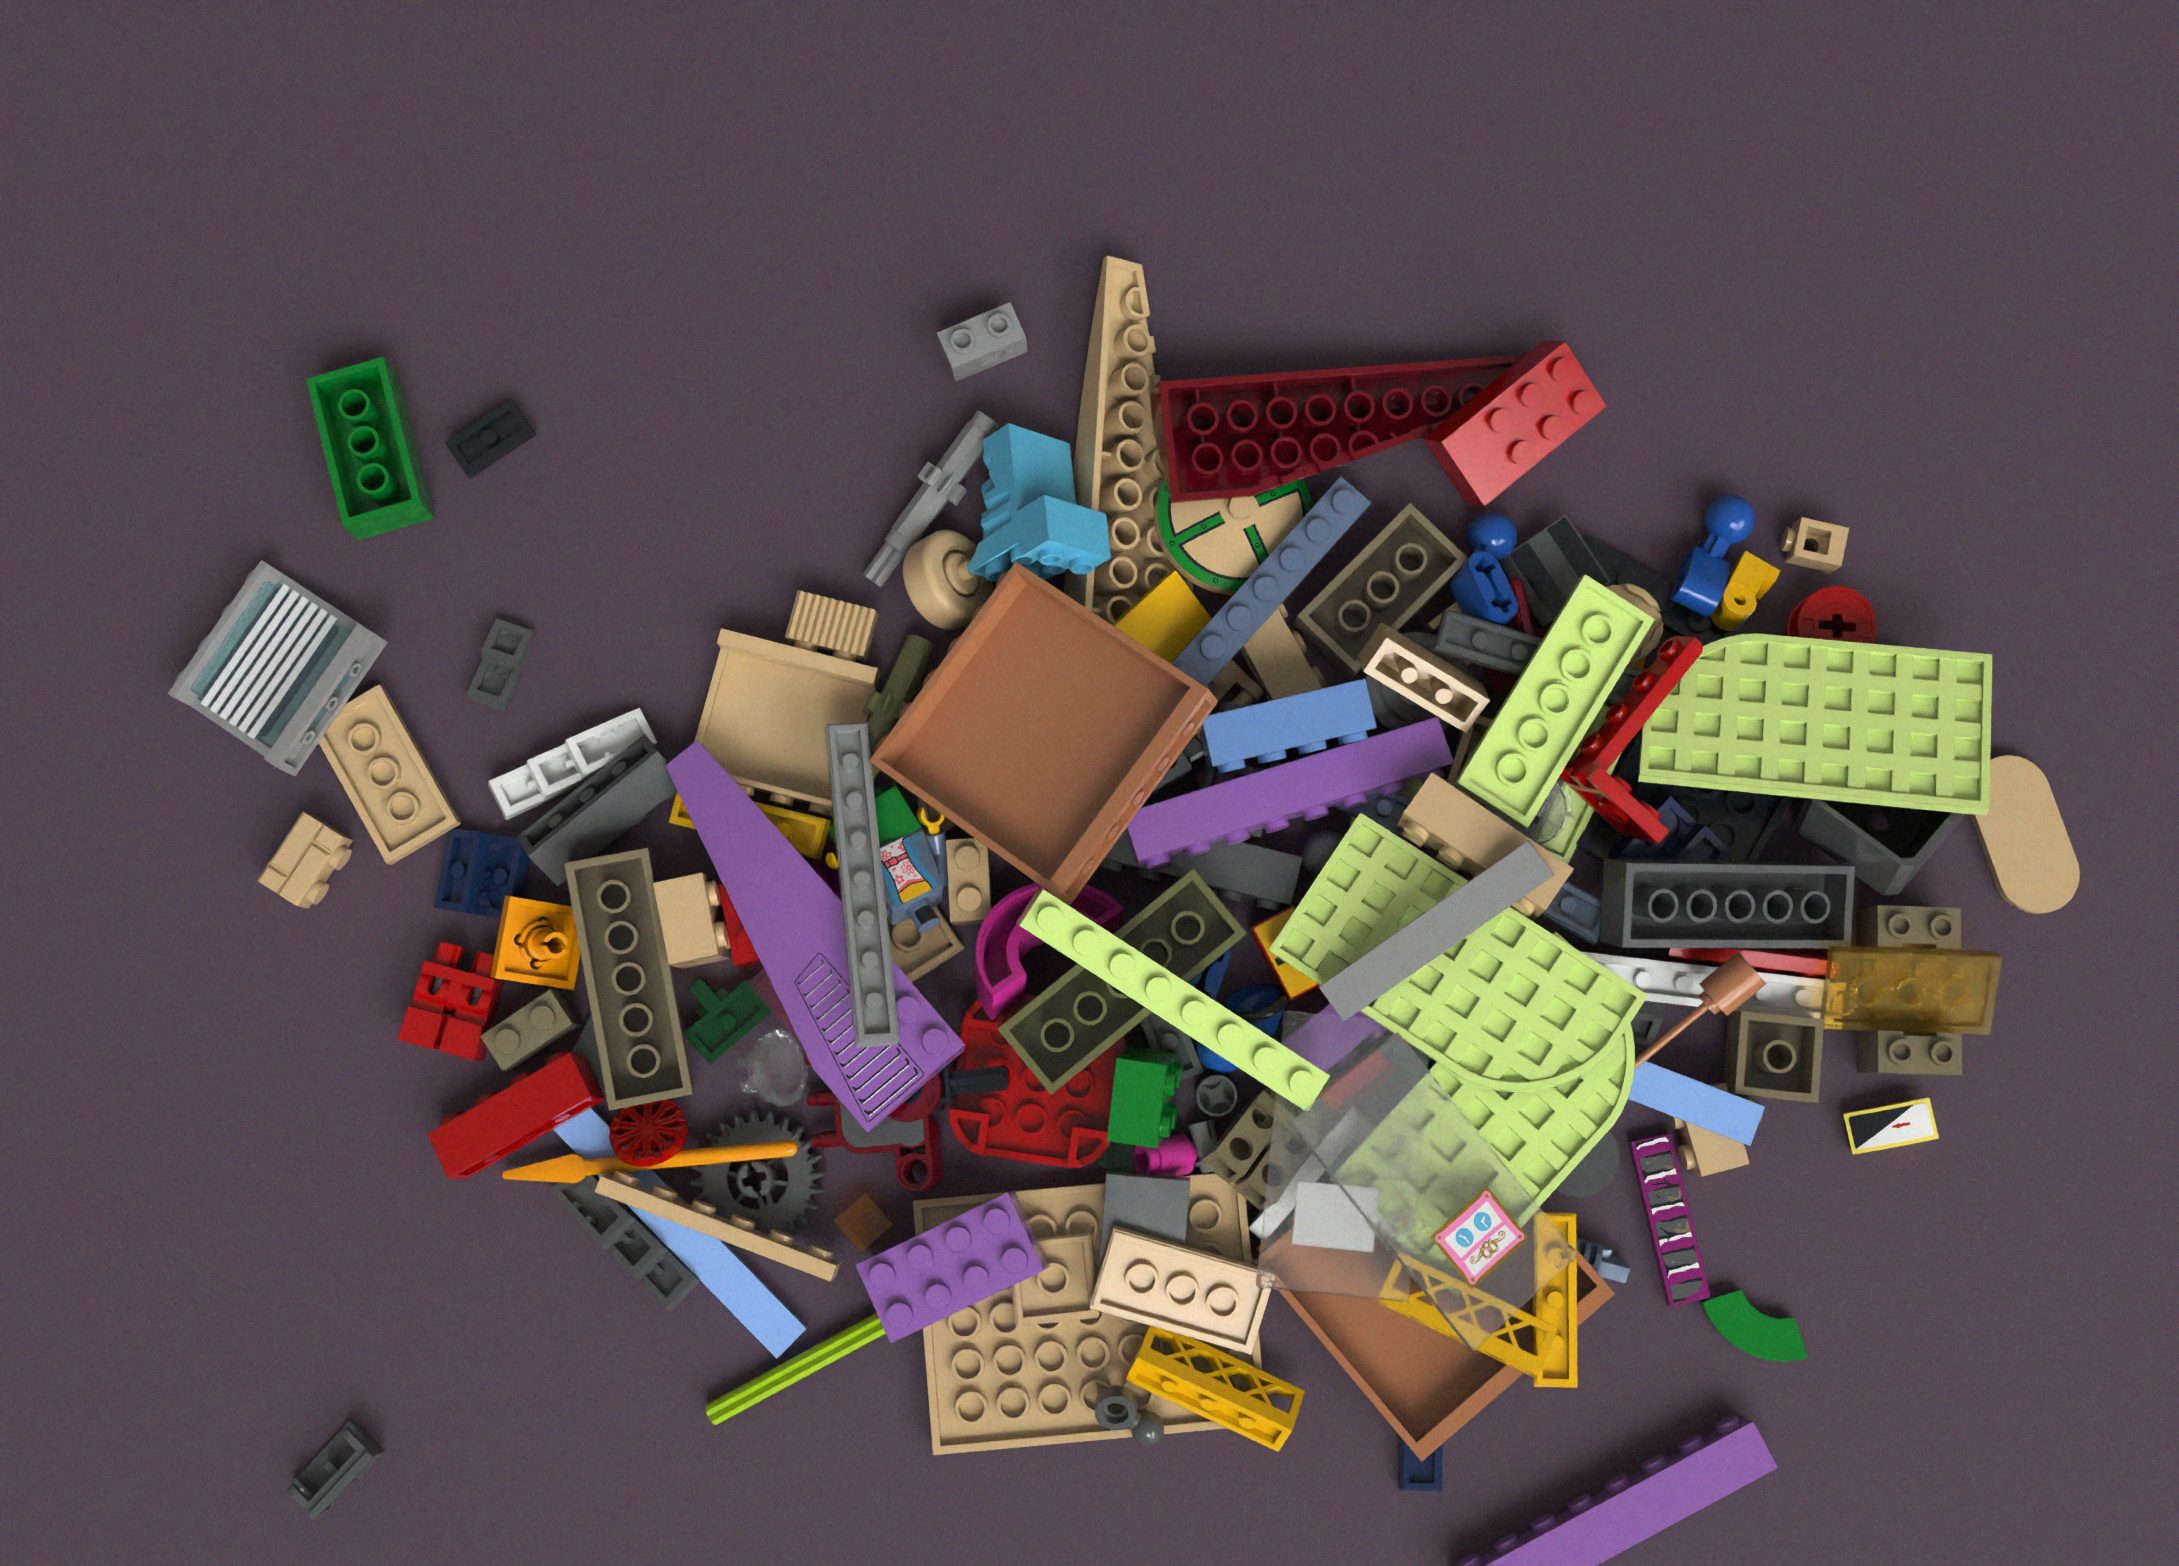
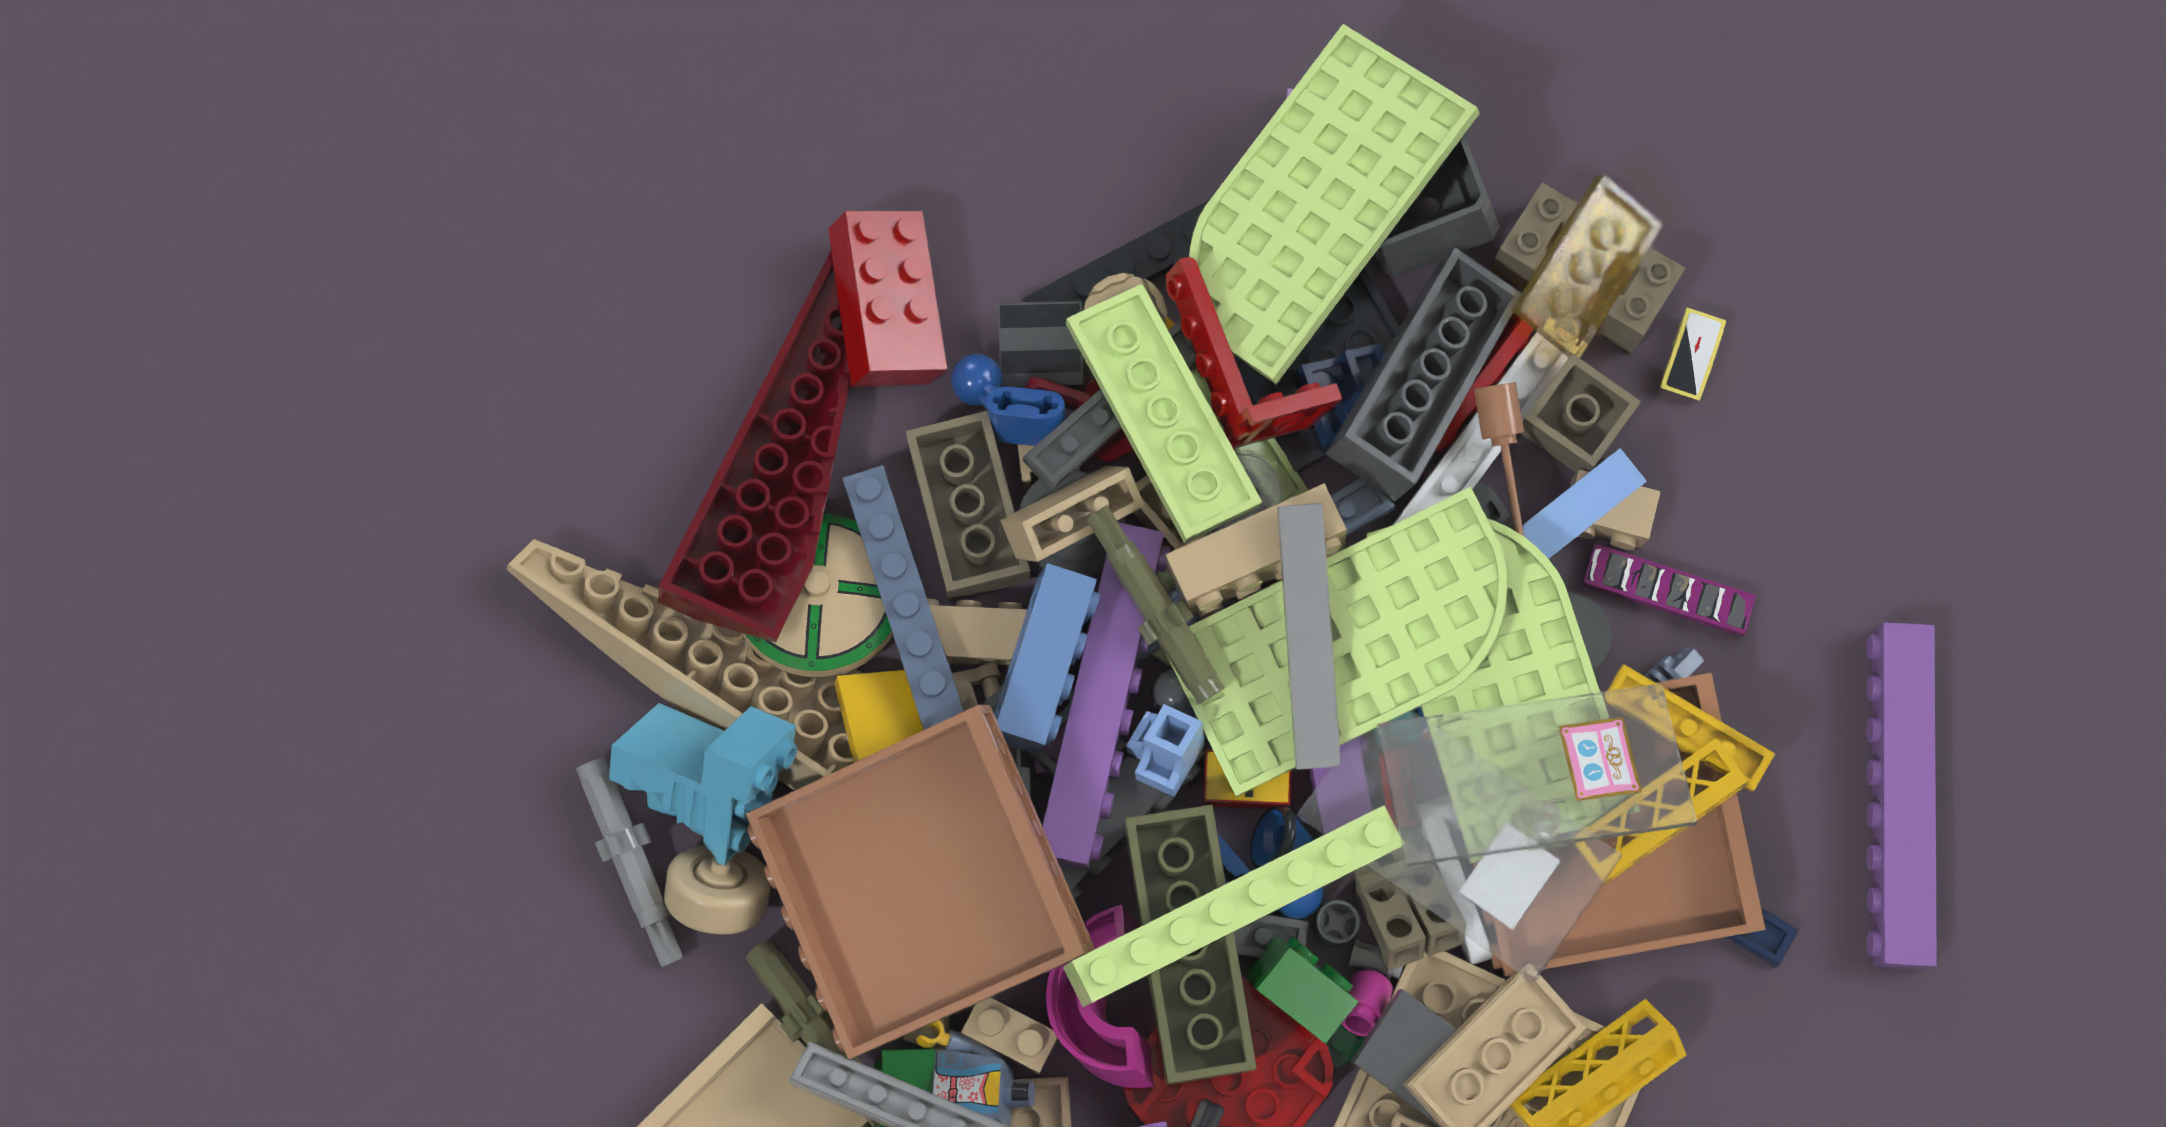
camera: 65 degrees left, 5 degrees down
(831, 626) = (694, 1025): tan brick -> none
(982, 341) = (512, 726): light grey brick -> none
(1274, 871) = (1167, 748): none -> light blue brick
(1378, 803) = (1163, 618): none -> olive piece
(1703, 570) = (1117, 218): blue beam -> none
(1746, 581) = (1150, 191): yellow leg -> none
(1752, 1331) = (1804, 577): green tile -> none
(1828, 544) = (1153, 98): tan brick -> none
(1840, 608) = (1220, 124): red piece -> none
(2026, 838) = (1513, 92): tan tile -> none

